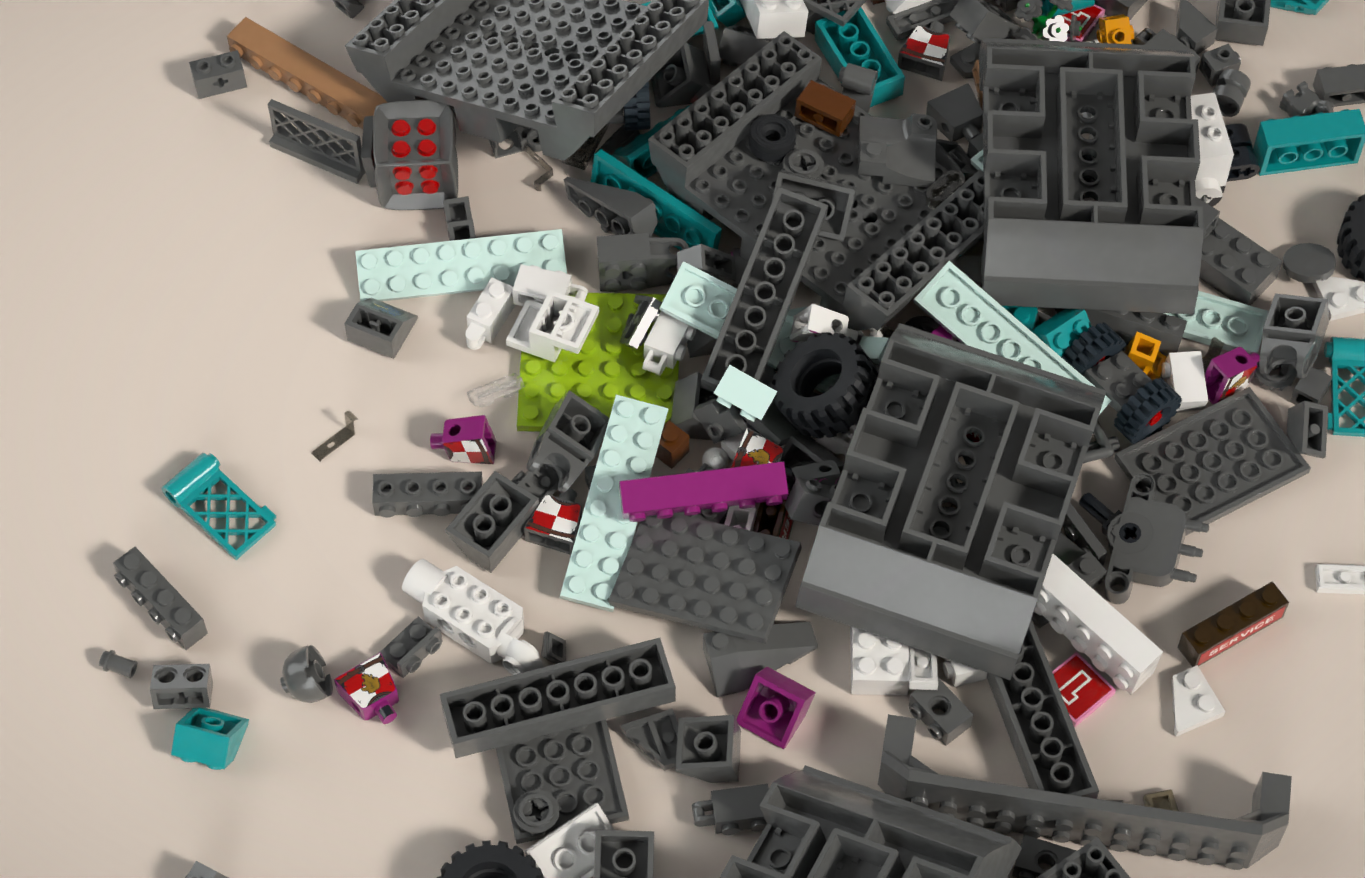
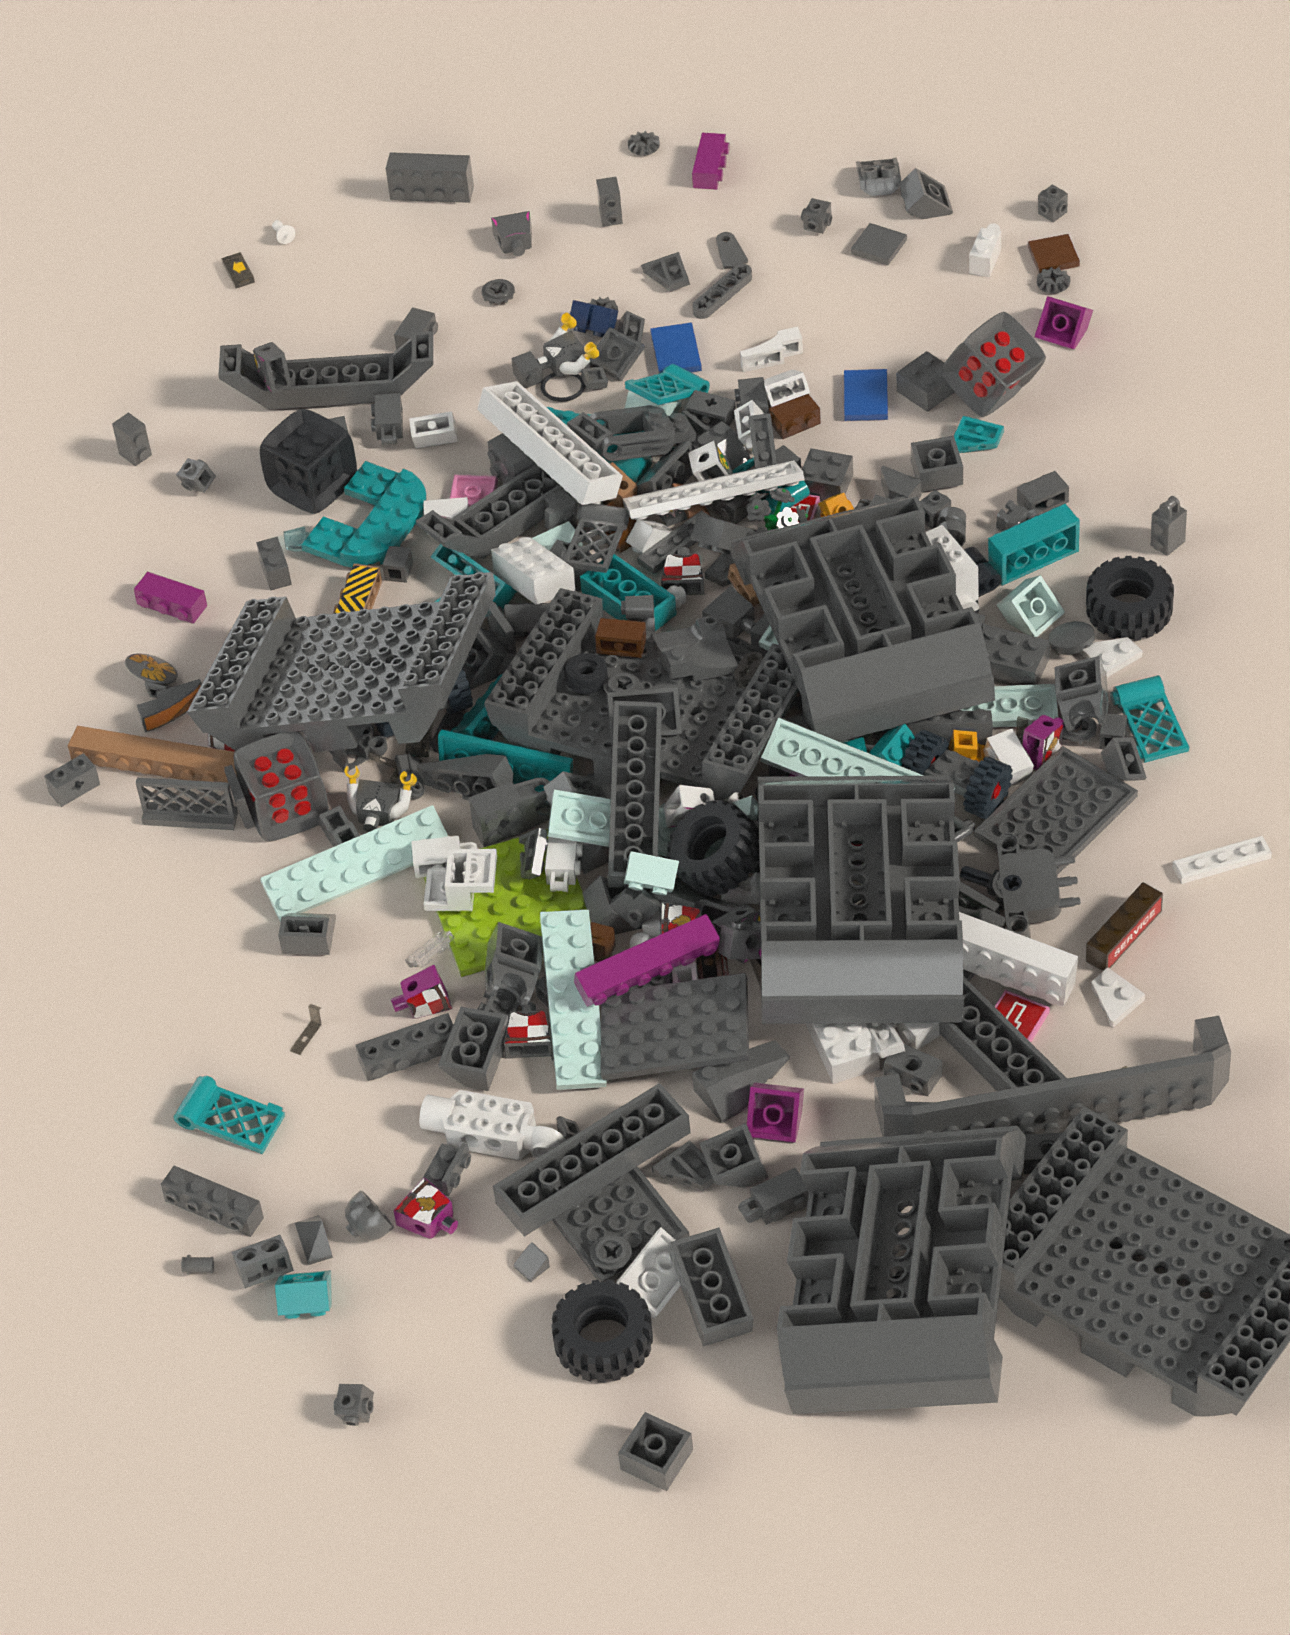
camera: 15 degrees left, 10 degrees down
(246, 678) = (313, 1240): none -> dark grey slope
(344, 25) = (169, 705): none -> dark grey slope
(454, 789) = (532, 1262): none -> slope
(489, 313) = (398, 891): white brick -> none
(511, 204) = (377, 801): none -> torso
(554, 184) = (409, 764): none -> dark grey piece
(911, 73) = (679, 594): none -> white plate
(1279, 212) = (1031, 606): none -> light aqua slope

